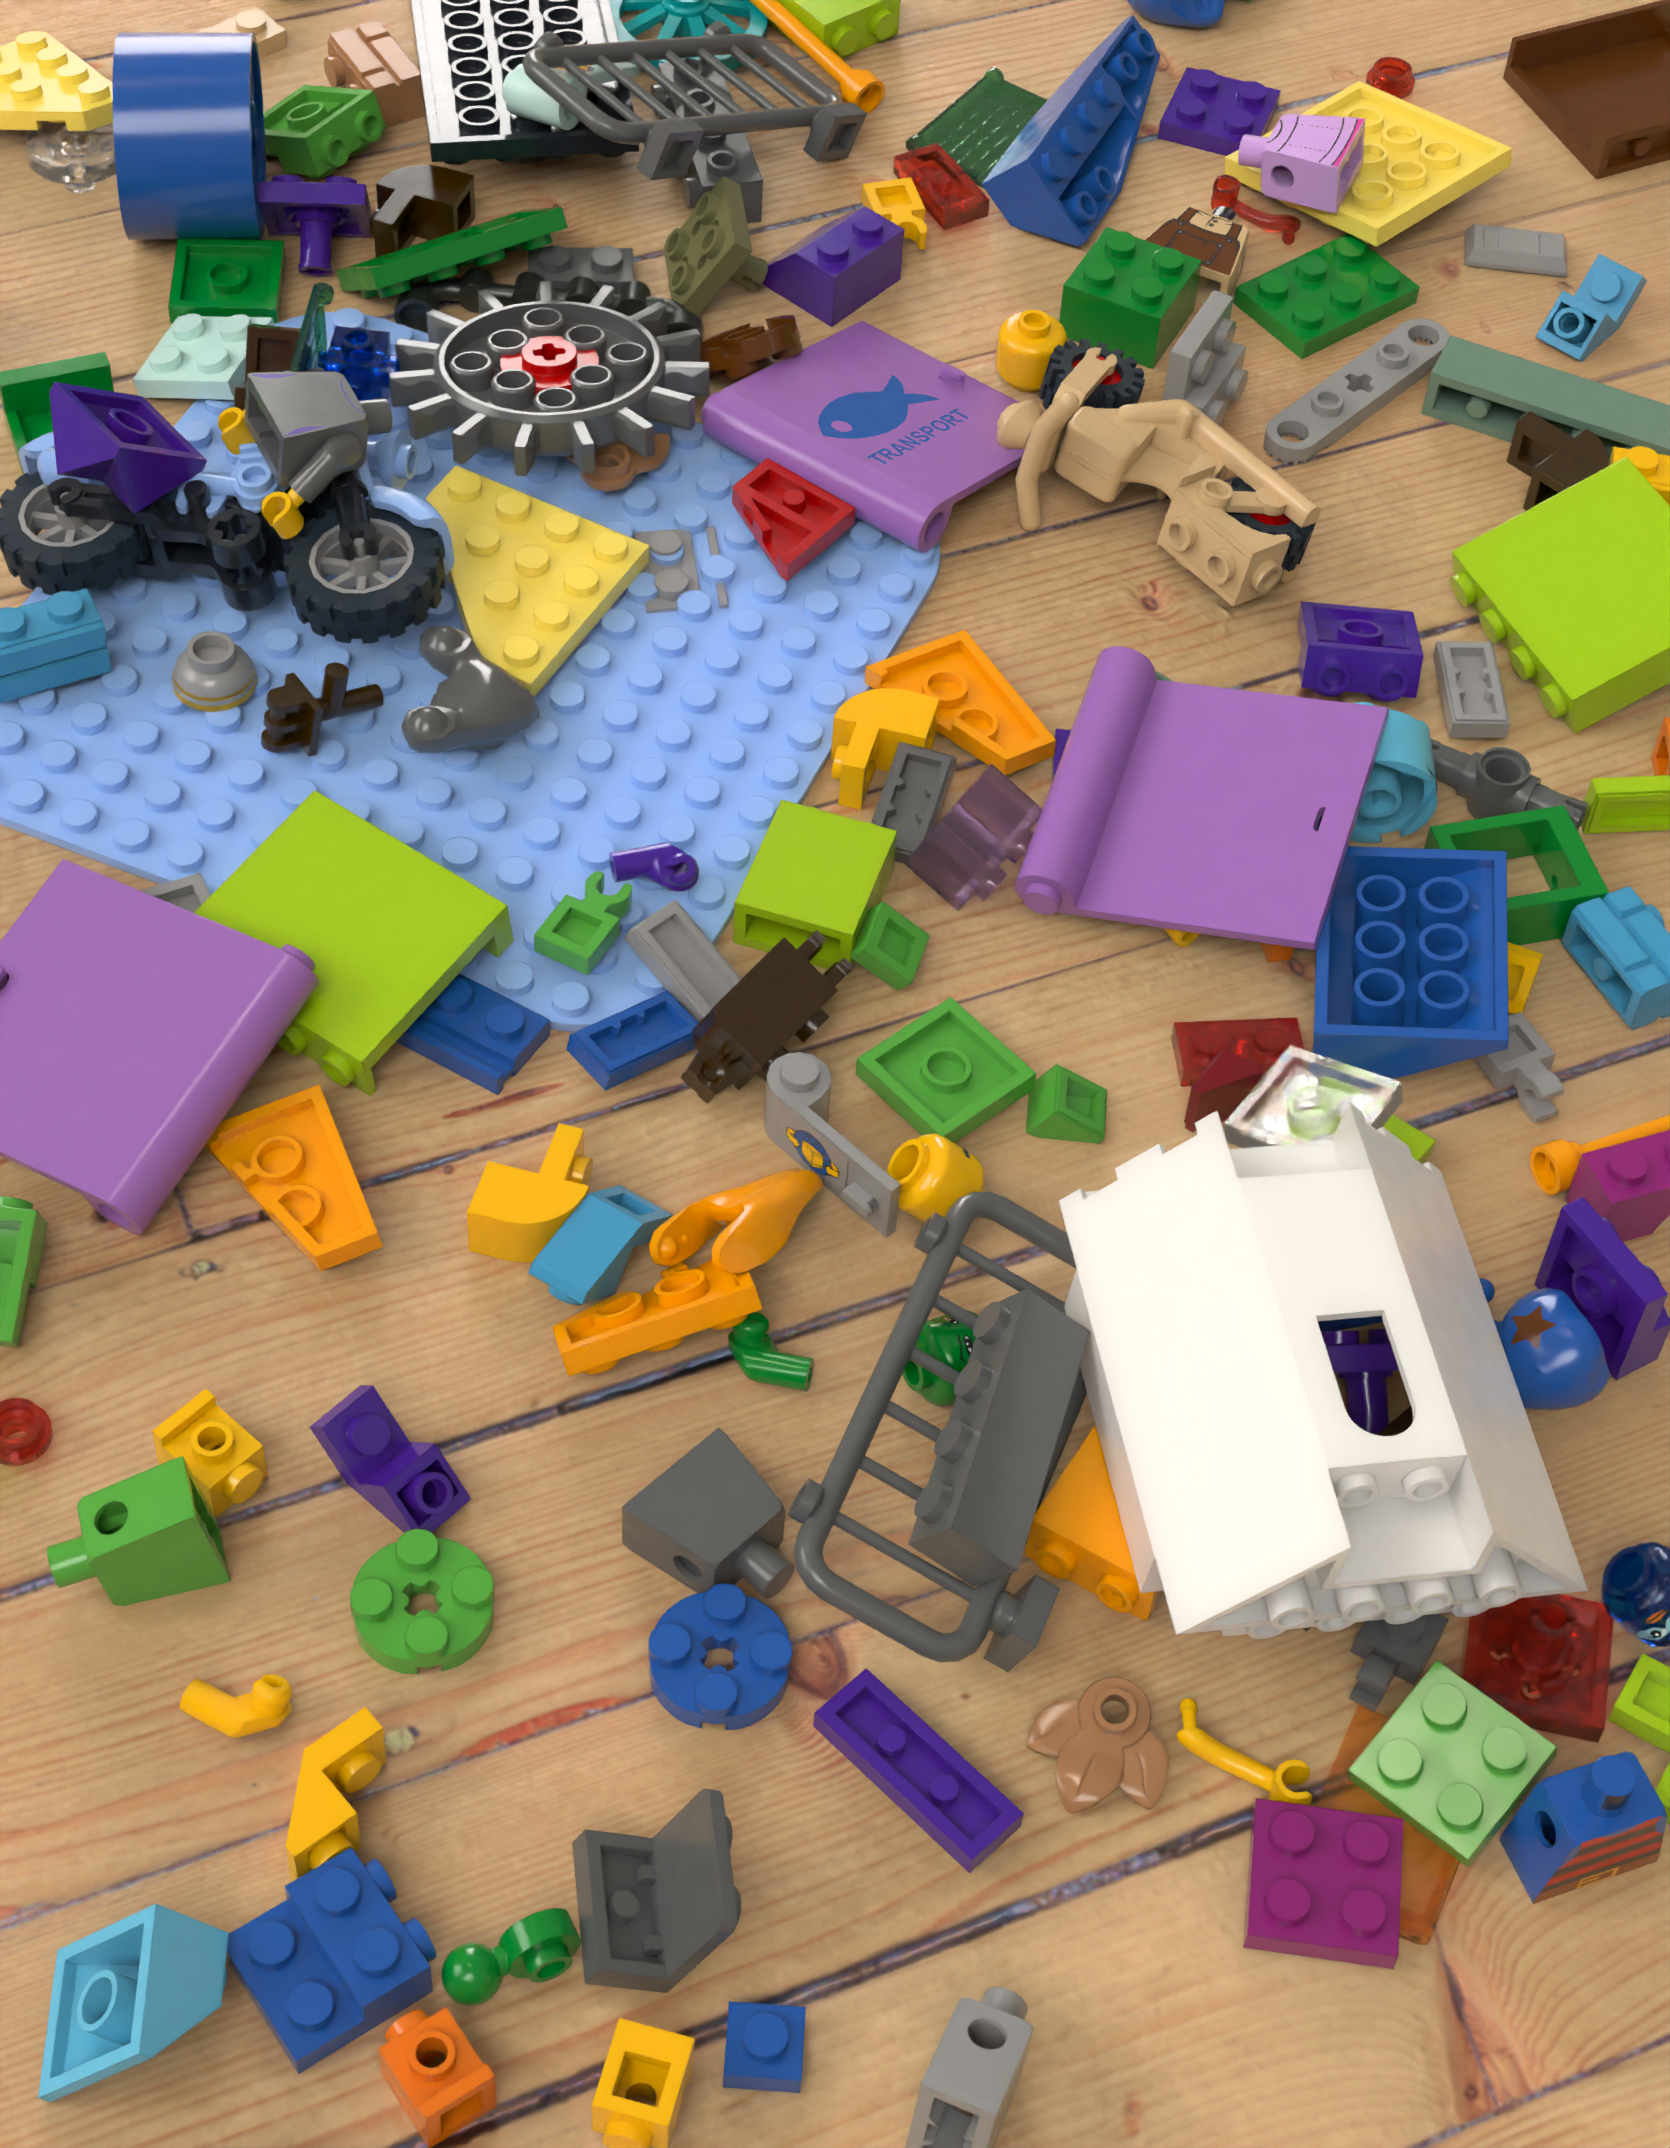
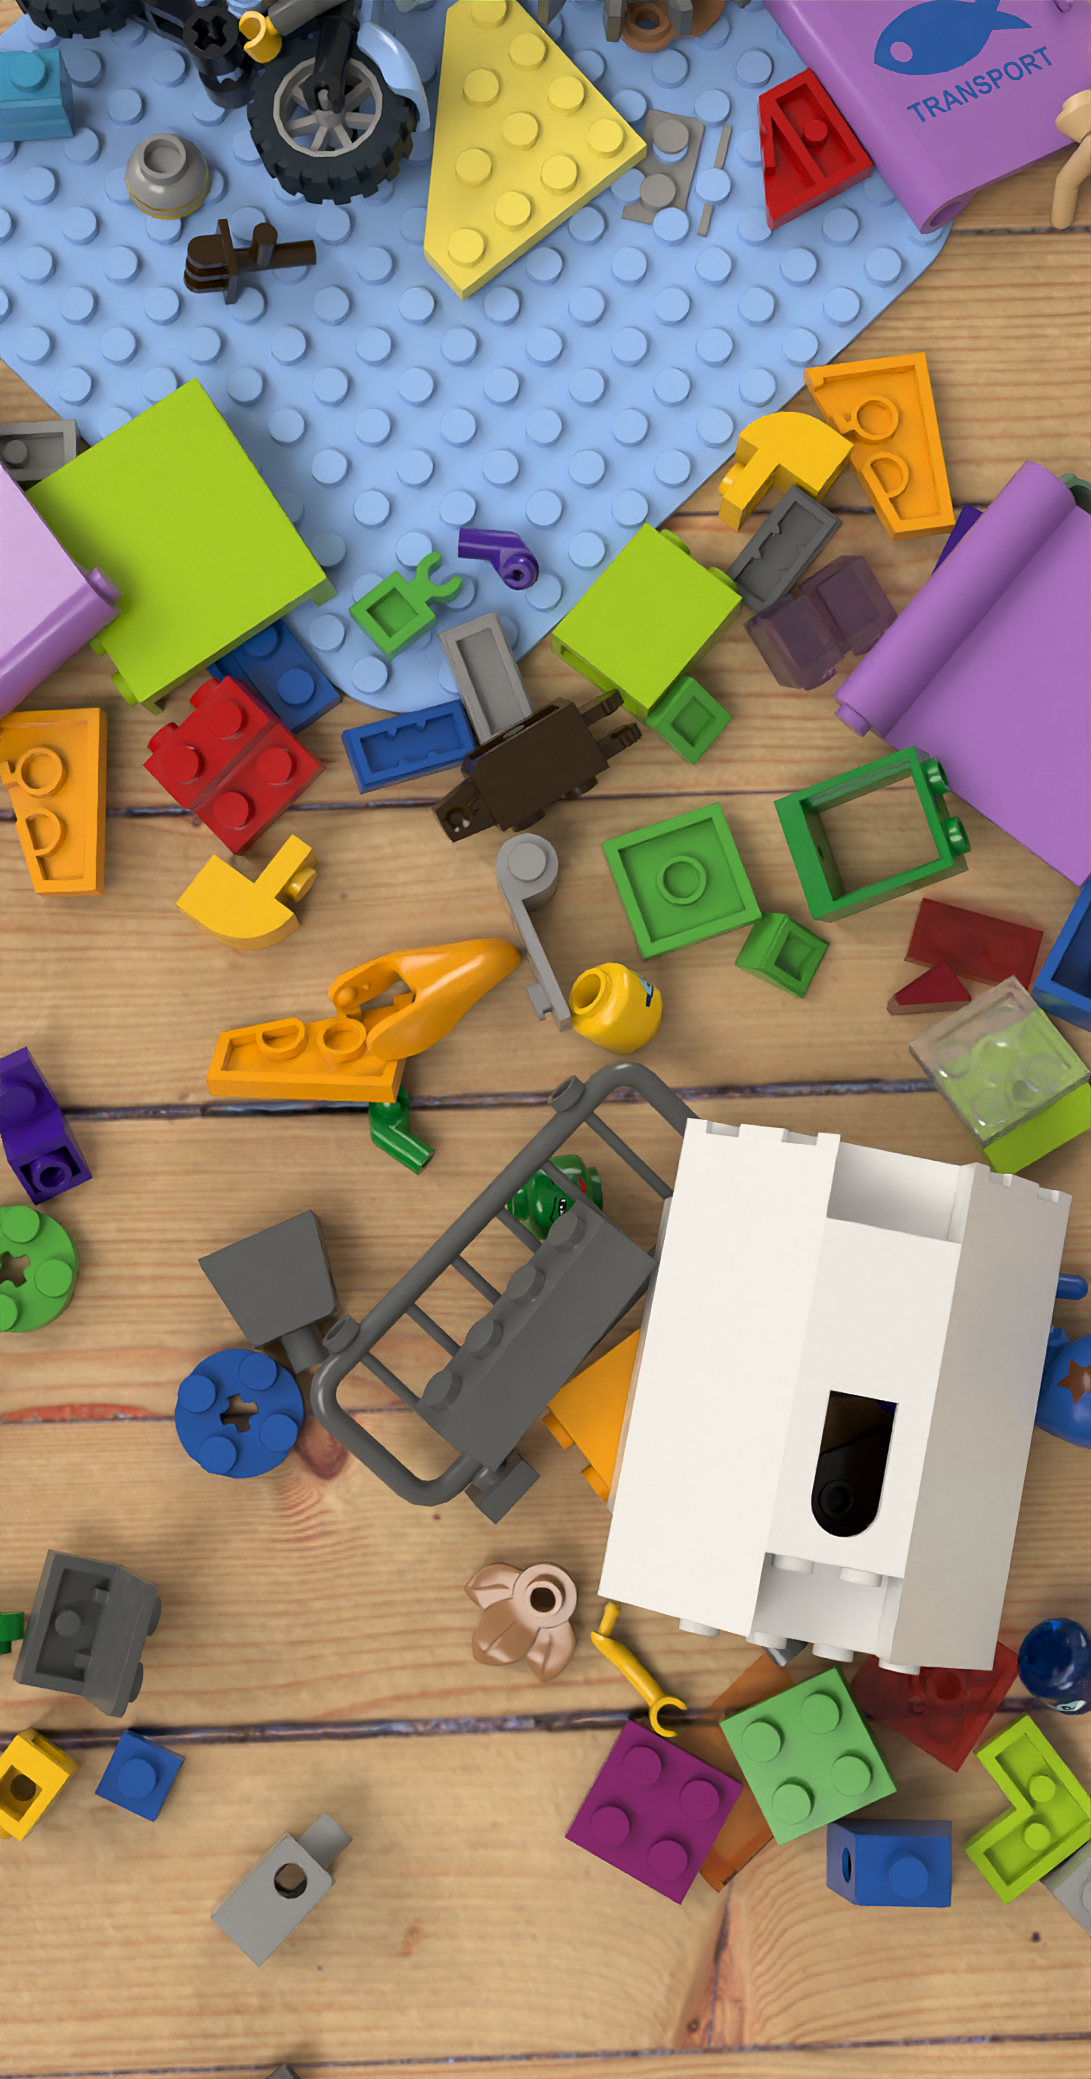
camera: 25 degrees right, 30 degrees up
(468, 1094) = (232, 762): none -> red plate
(473, 706) = (391, 306): dark grey head -> none
(595, 1244) = (289, 963): dark azure slope -> none
(918, 1770) = (359, 1584): dark purple plate -> none
(1072, 938) = (812, 851): none -> green window

